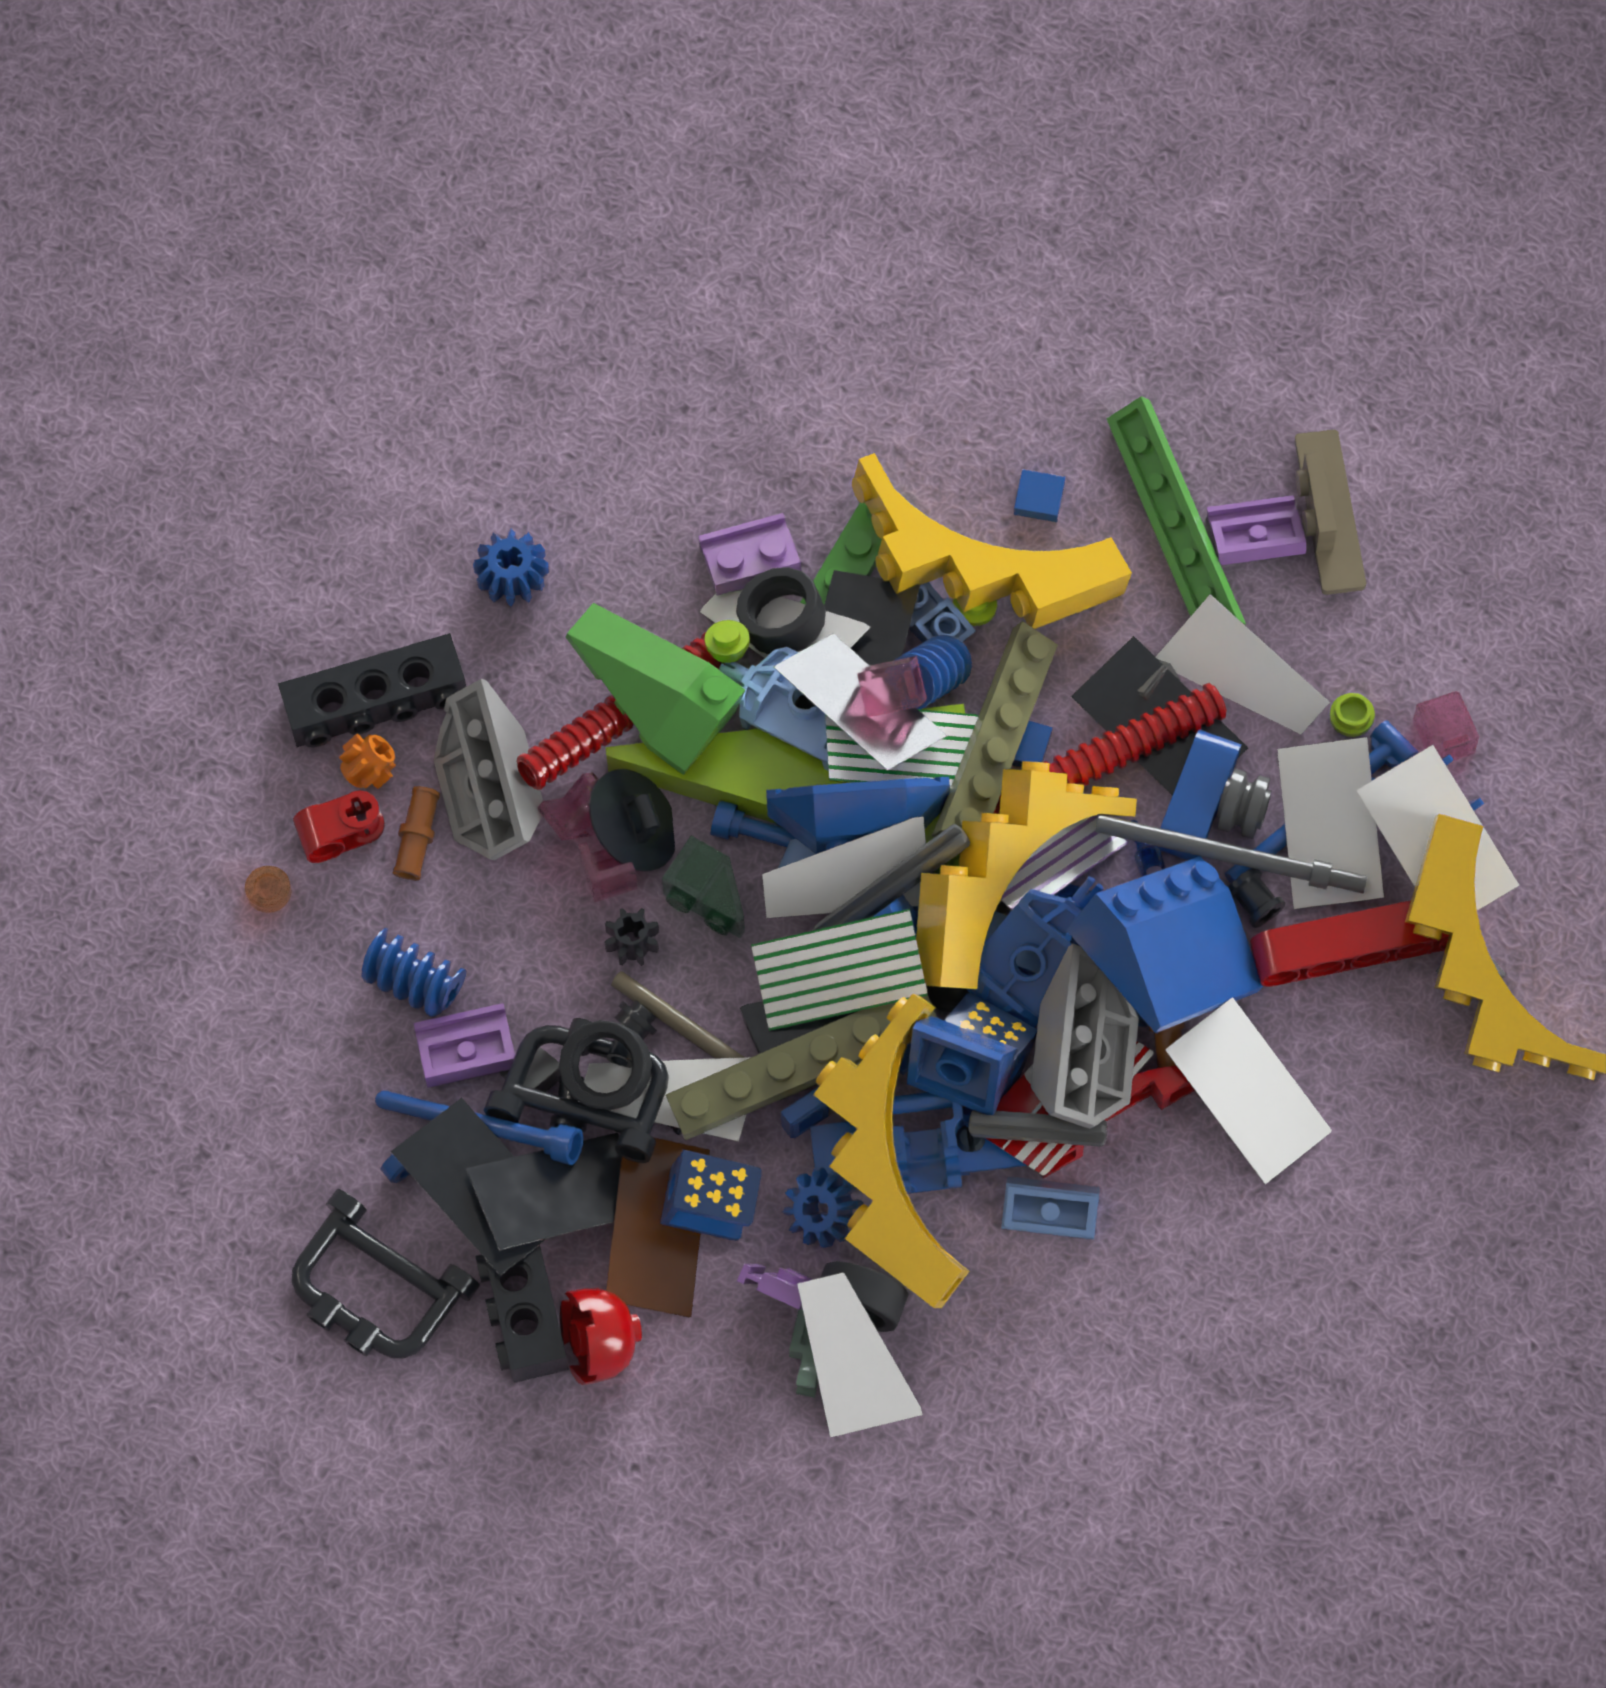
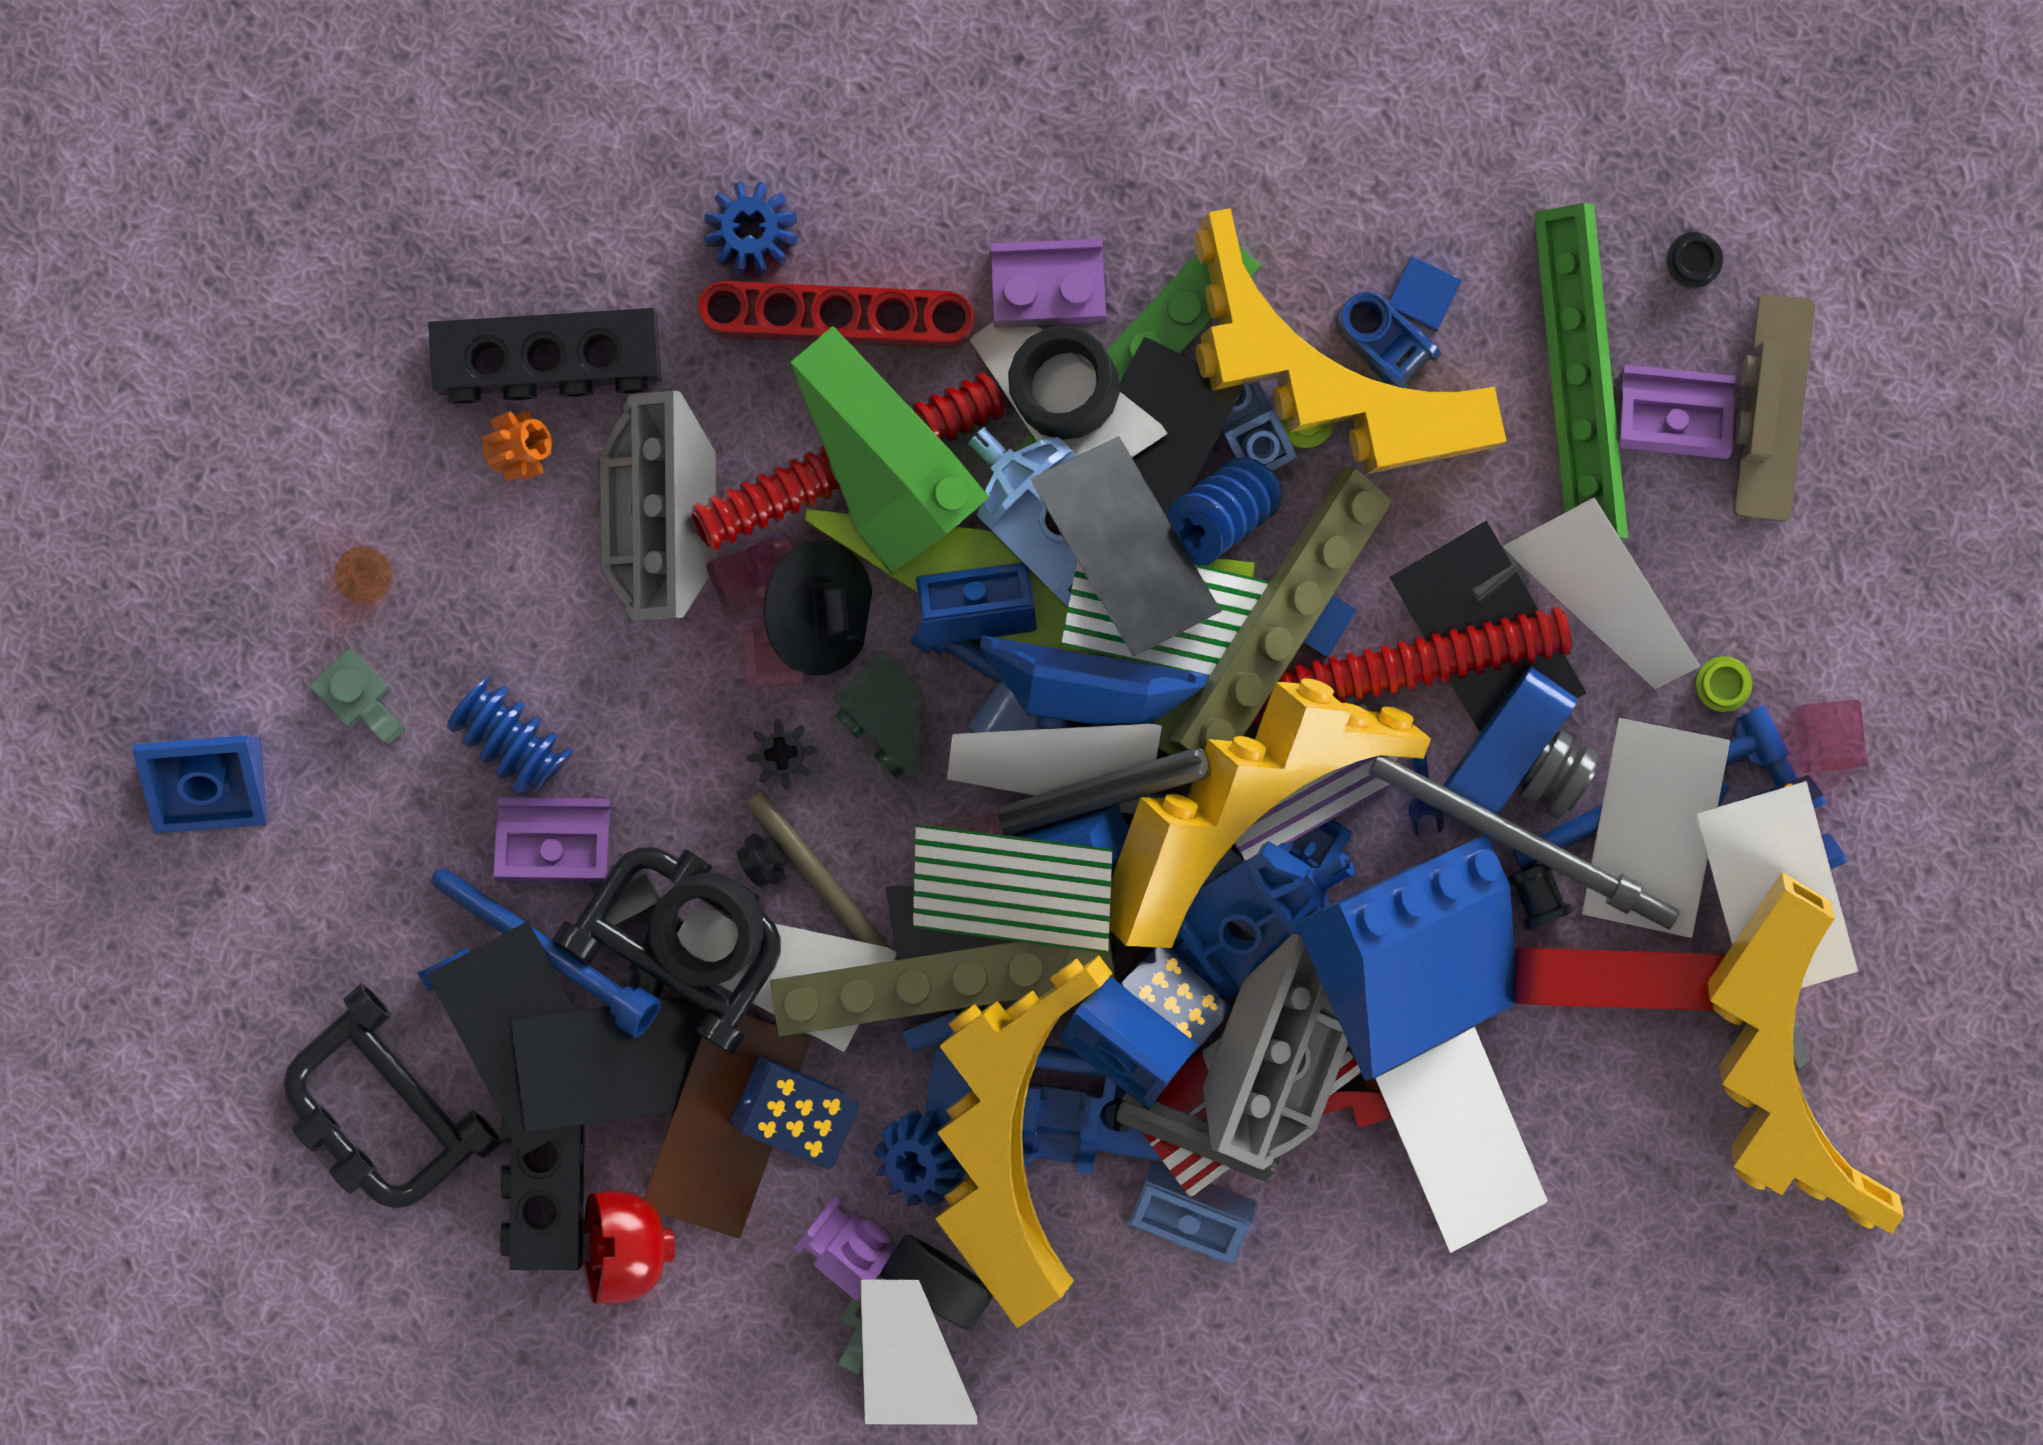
camera: 10 degrees right, 20 degrees up
(174, 1065) = (203, 783): none -> blue slope
(282, 975) = (355, 693): none -> sand green plate
(334, 828) = (454, 520): red piece -> none
(416, 833) = (556, 551): dark orange pin -> none
(573, 602) = (813, 299): none -> red beam
(727, 640) = (987, 410): lime plate -> none
(742, 785) = (976, 603): none -> blue slope
(891, 686) = (1168, 541): clear pink panel -> none
(1025, 526) = (1388, 341): none -> blue piece
(1237, 424) = (1694, 259): none -> black plate

